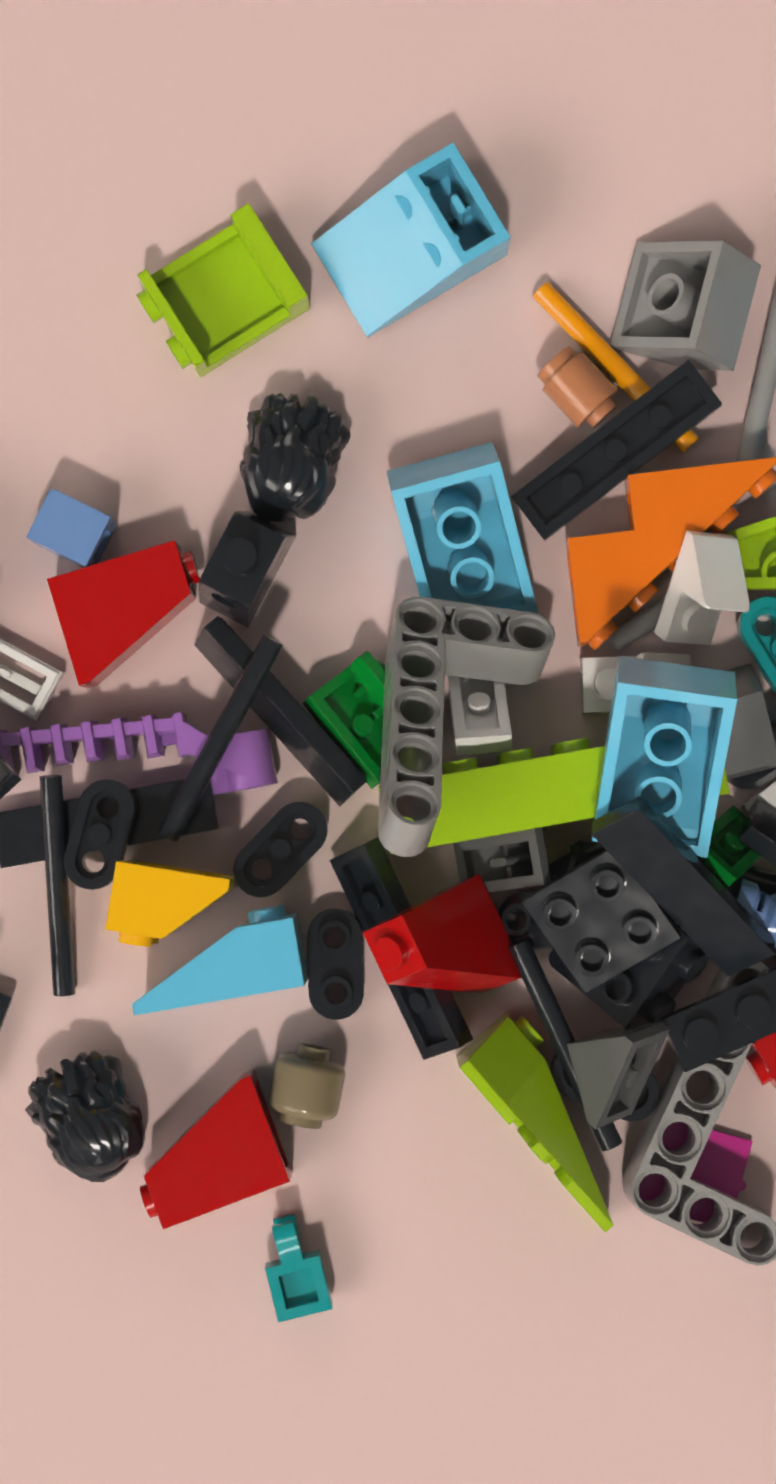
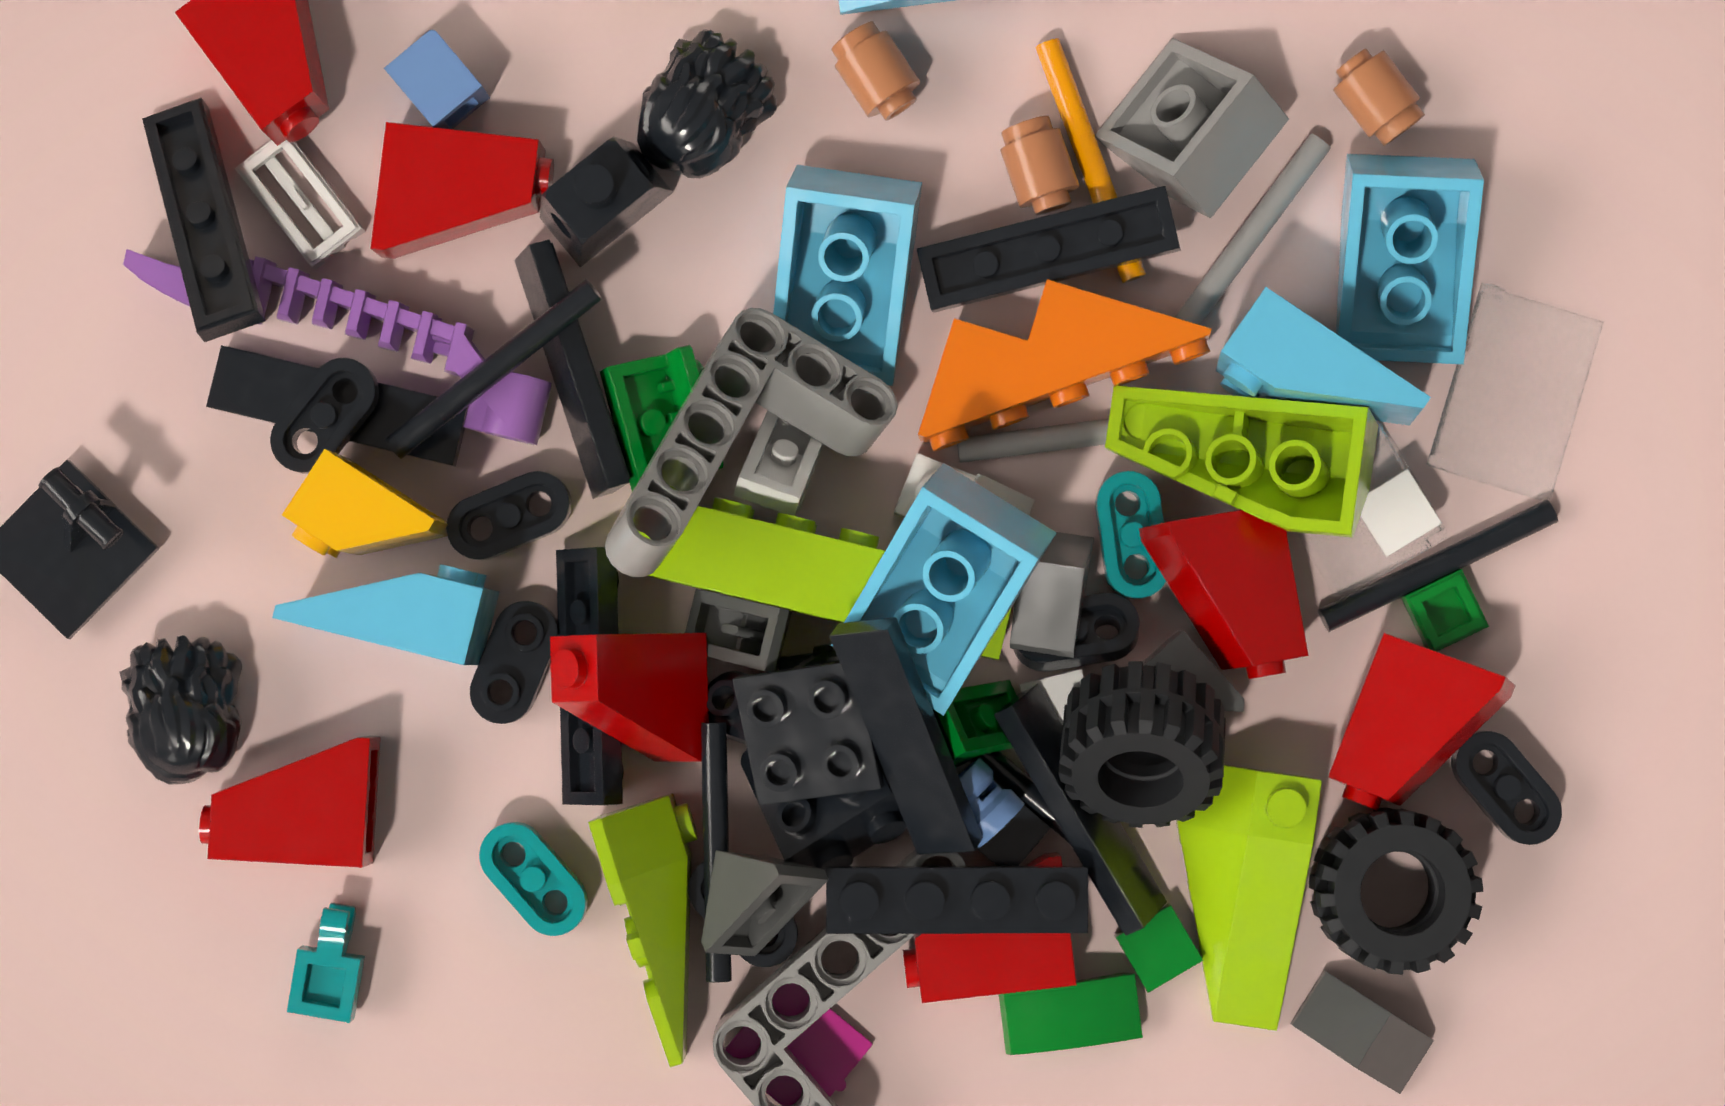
camera: 25 degrees right, 0 degrees up
(57, 885) = (256, 450): black bar -> none
(306, 1086) = (426, 777): dark tan head -> none
(416, 370) = (875, 71): none -> nougat brick
(425, 1130) = (530, 882): none -> teal plate
(703, 584) = (1074, 433): white slope -> none

